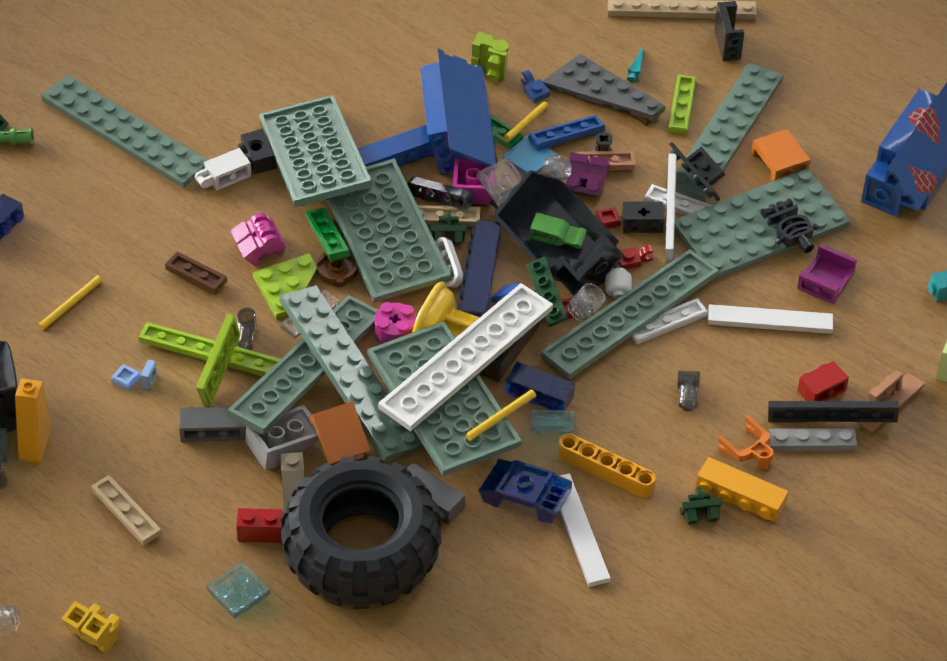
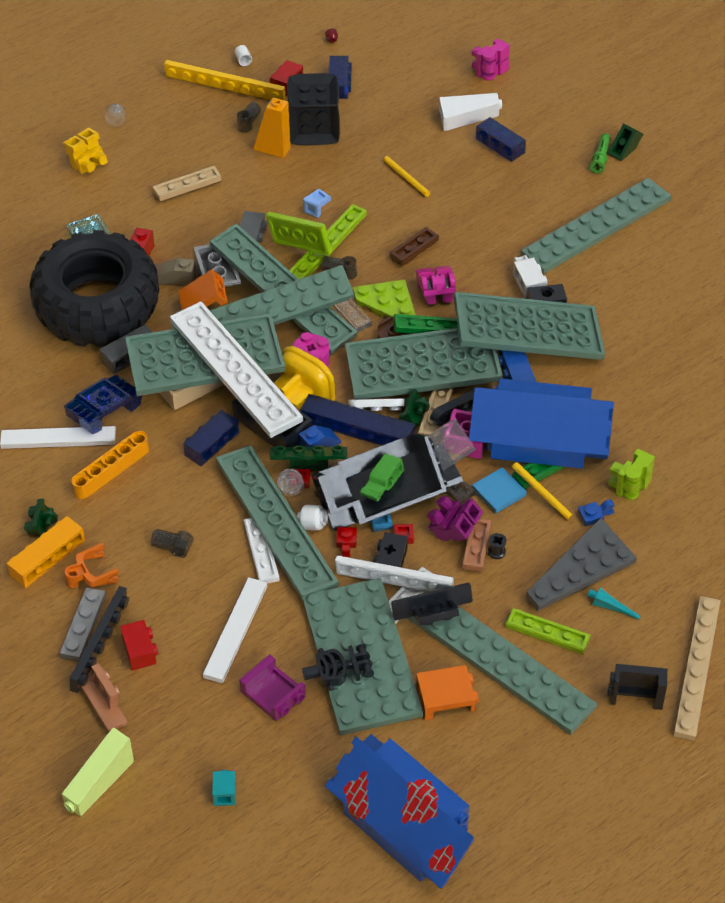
camera: 105 degrees right, 0 degrees up
(500, 415) = (165, 380): yellow bar -> none
(551, 420) = (168, 434): clear light blue plate -> none
(557, 166) = (459, 489): clear head -> none
(566, 132) = (523, 523): blue tile -> none

